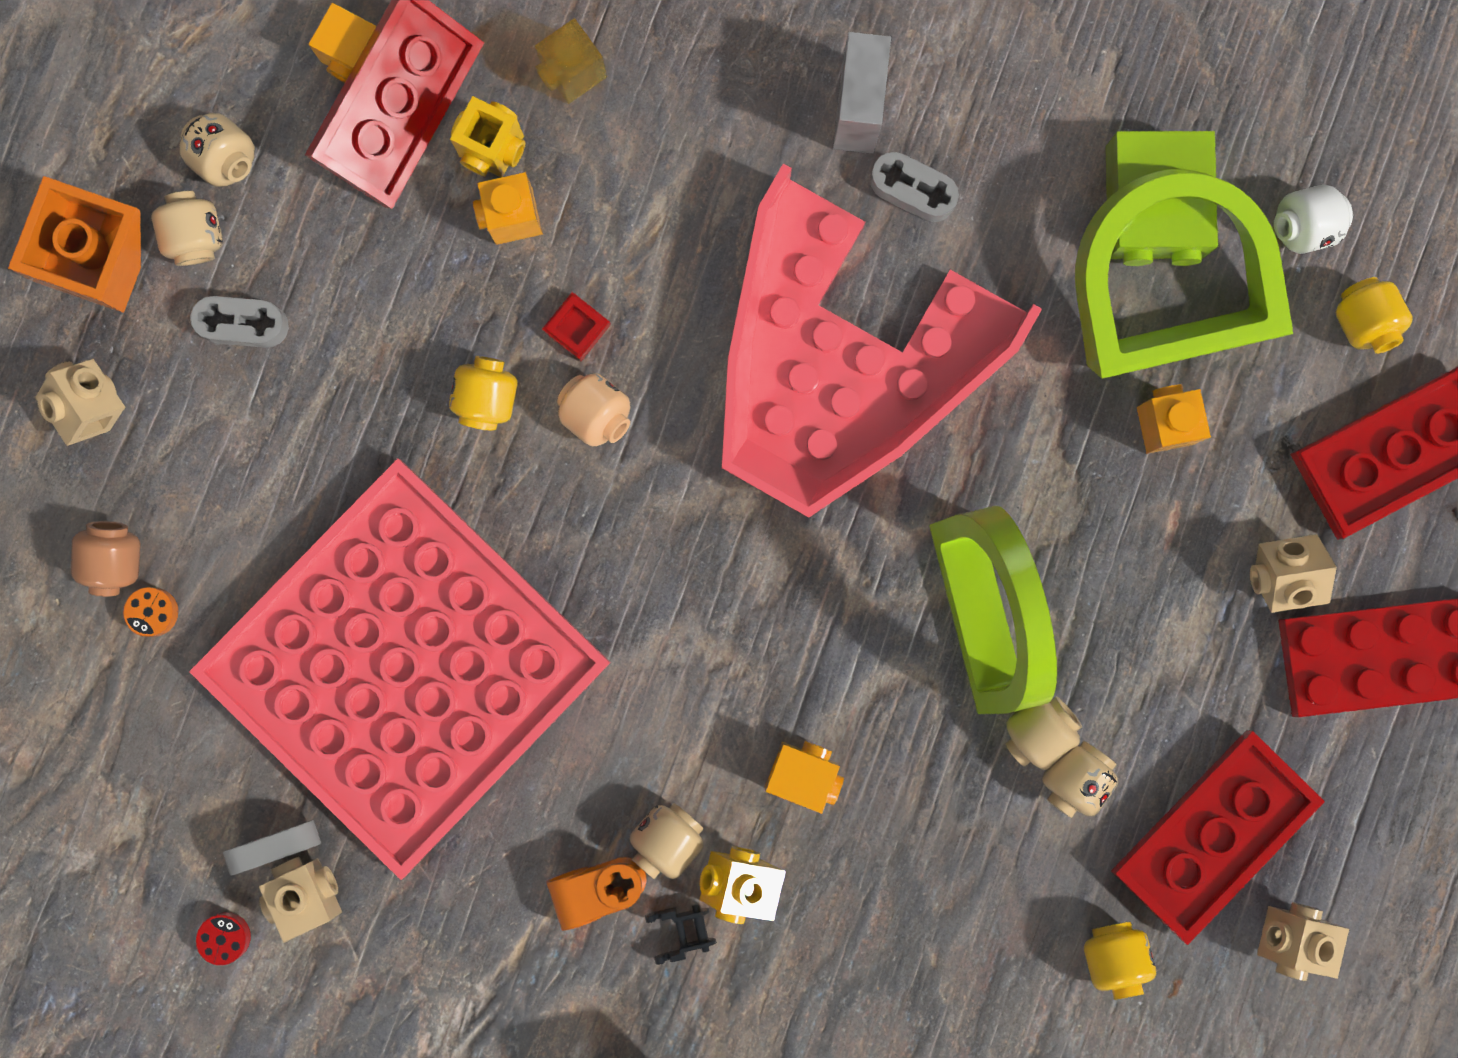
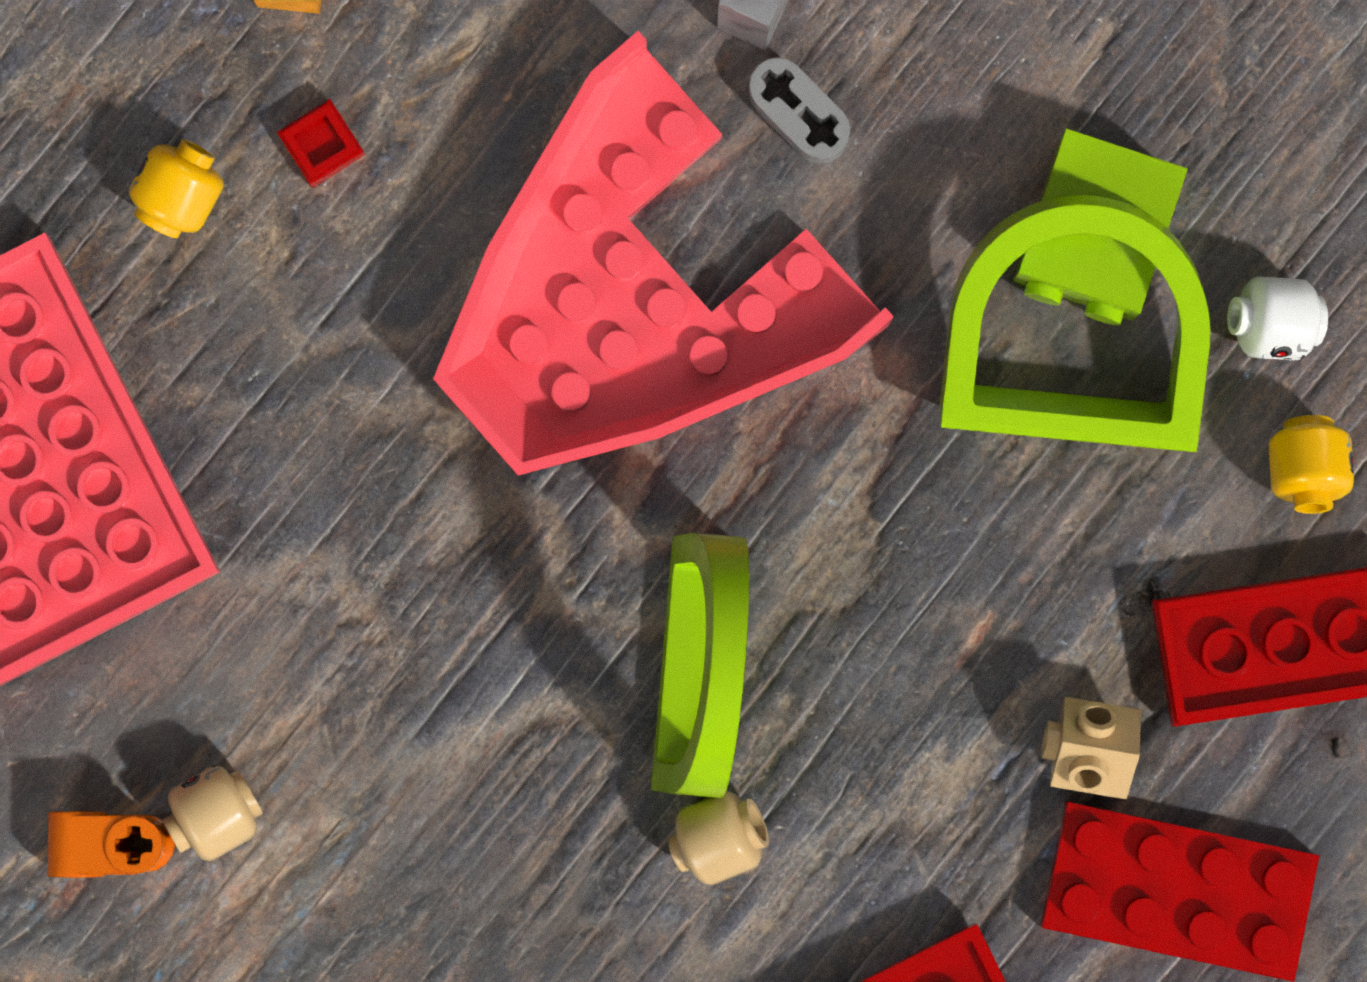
camera: 20 degrees right, 0 degrees up
(594, 409) = (305, 254): light nougat head -> none
(697, 915) = (216, 948): black piece -> none
(741, 885) = (282, 895): yellow brick -> none
(805, 776) = (408, 791): light orange brick -> none
(1081, 781) = (743, 912): tan head -> none
(1173, 419) = (1014, 507): light orange brick -> none

